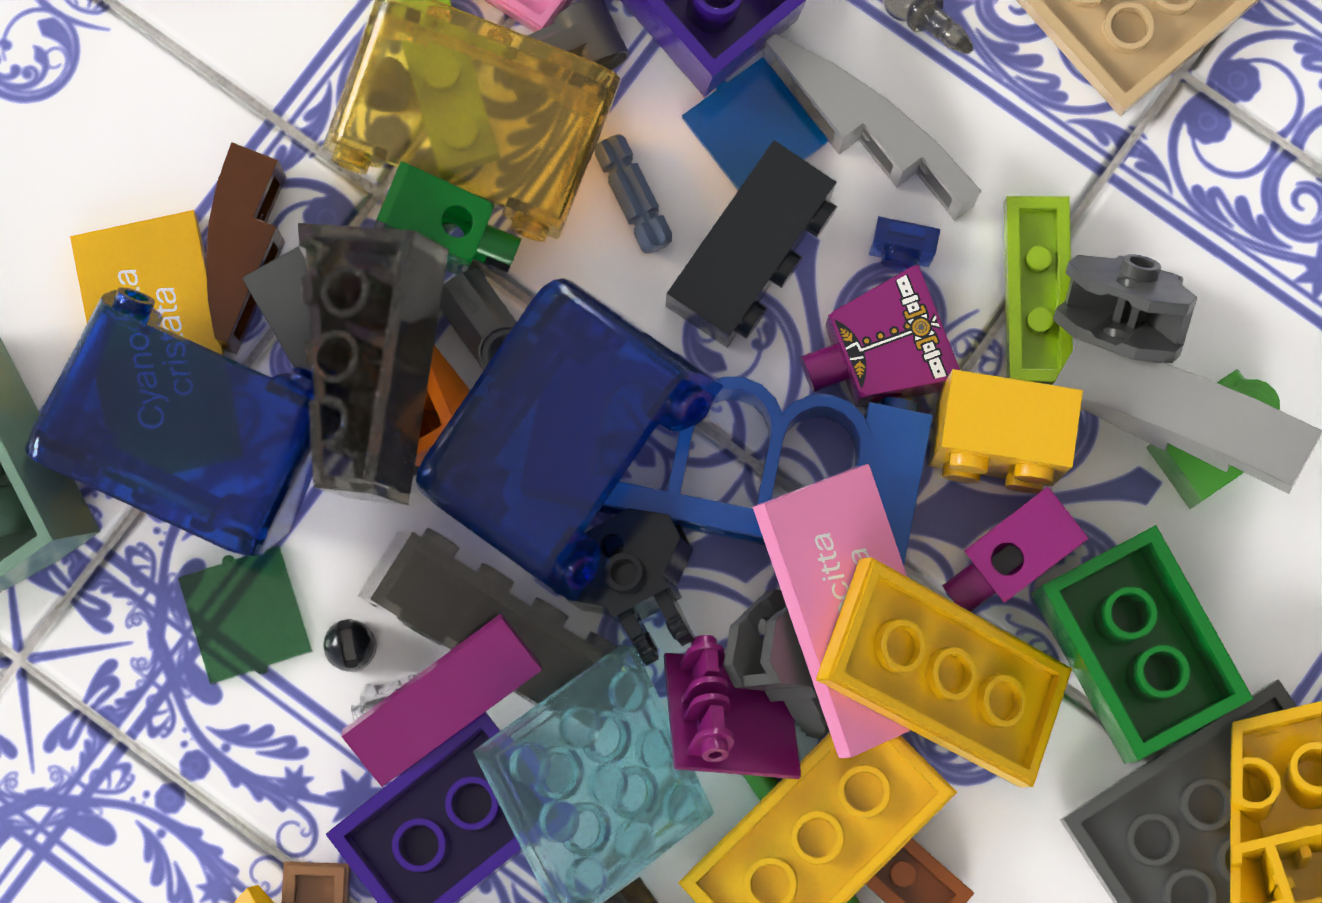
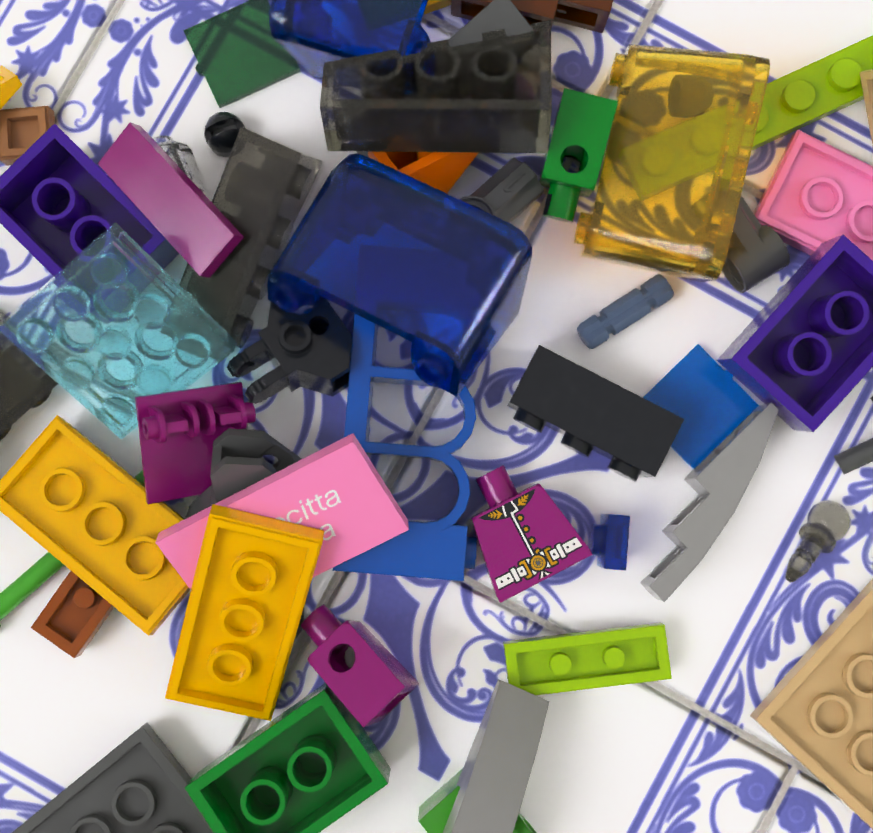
camera: 85 degrees right, 5 degrees up
(1004, 430) = (459, 646): yellow brick -> none
(1127, 307) = (576, 740): dark grey hinge -> none

